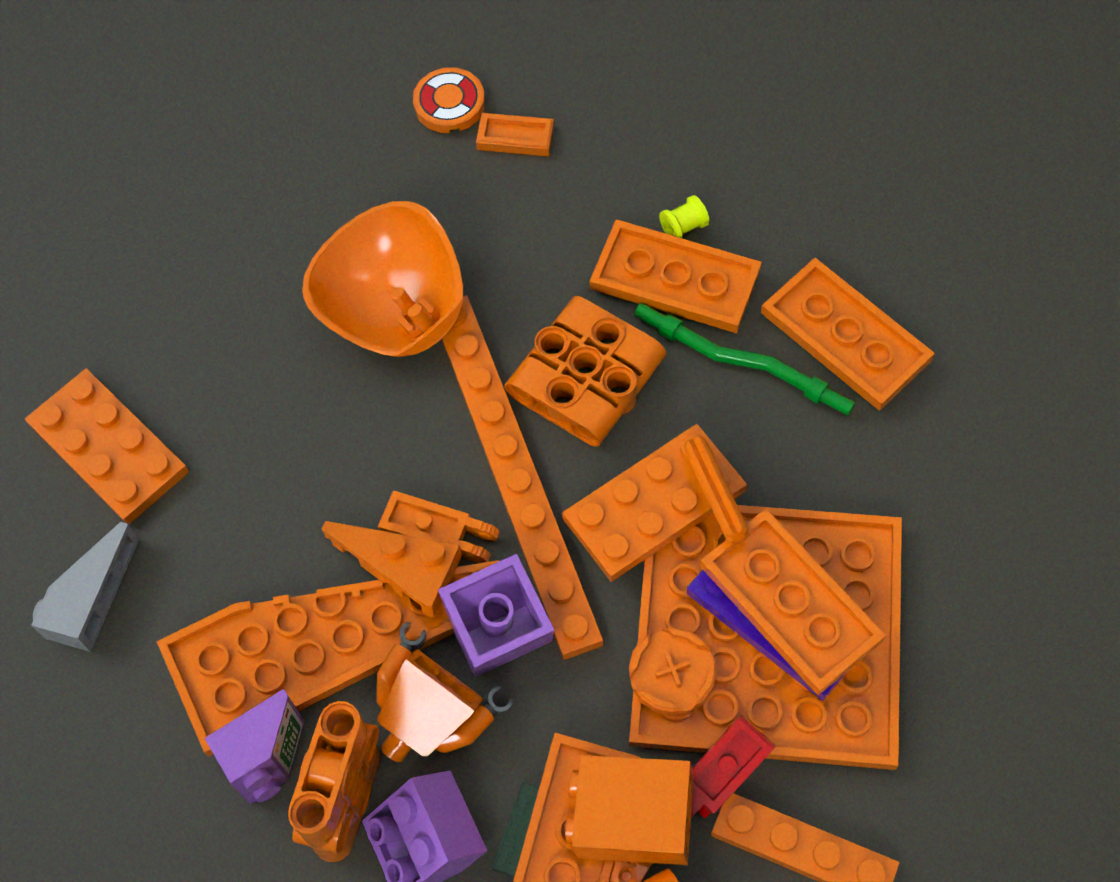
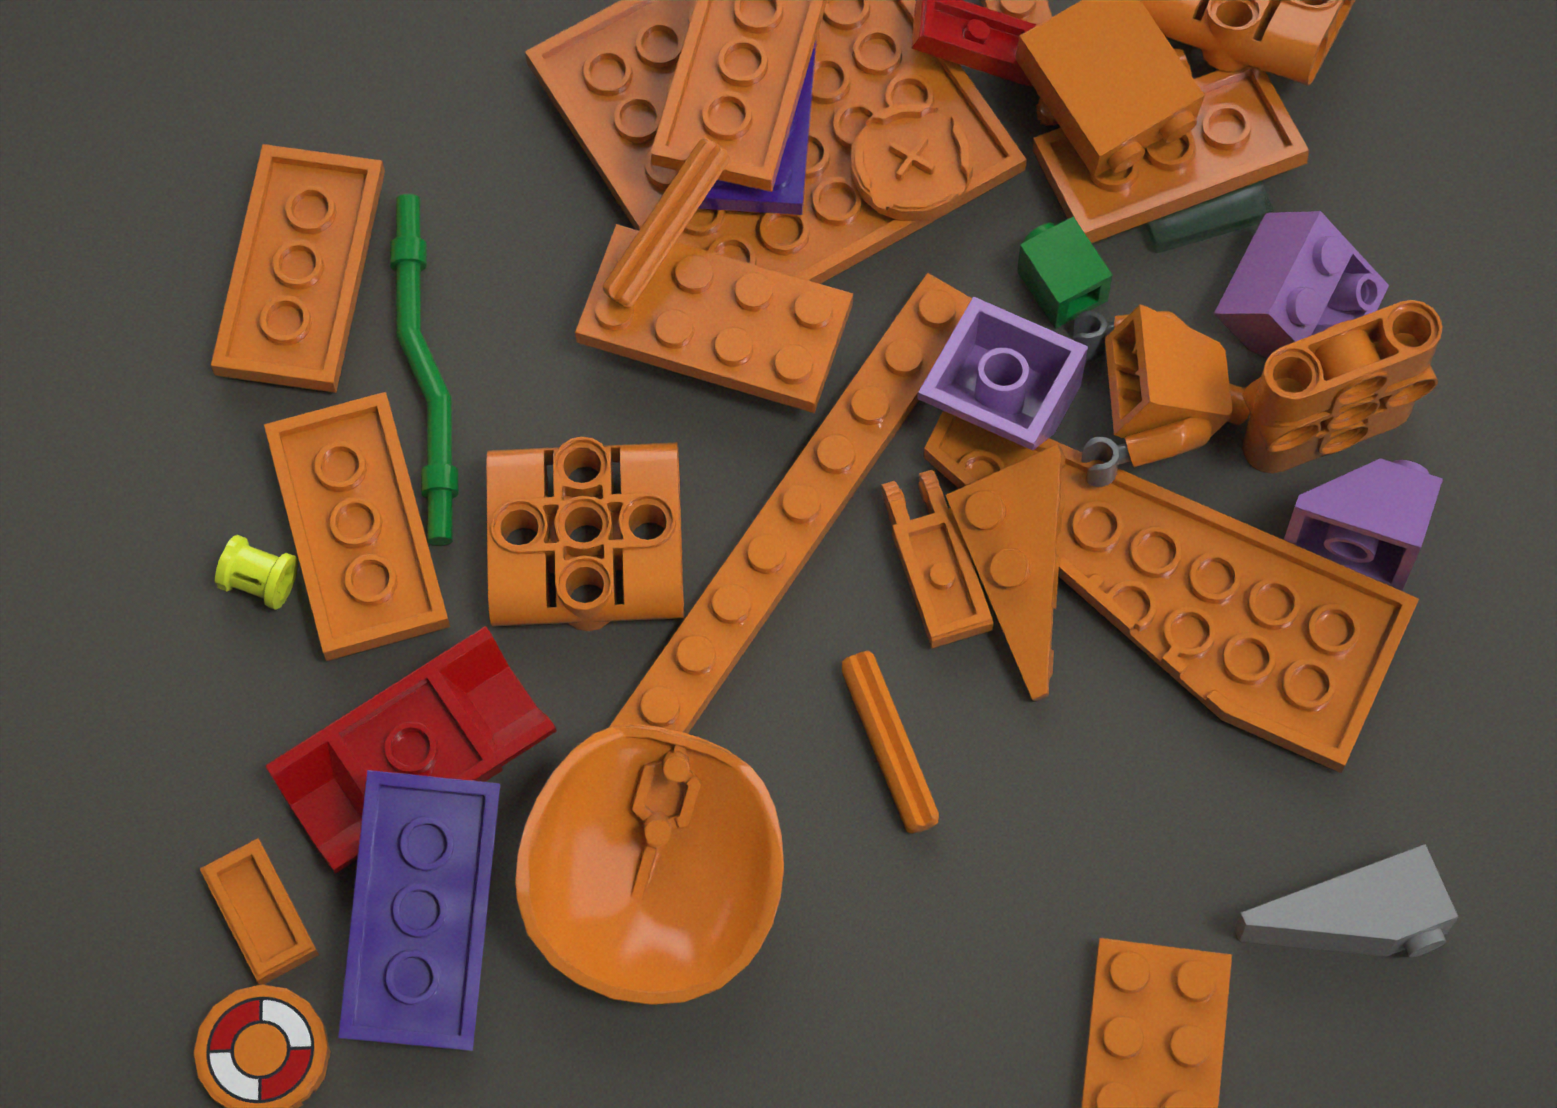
camera: 130 degrees left, 5 degrees up
(364, 442) = (890, 742): none -> orange axle
(452, 180) = (419, 910): none -> dark purple plate
(533, 234) = (444, 720): none -> red piece
(544, 711) = (1063, 271): none -> green brick

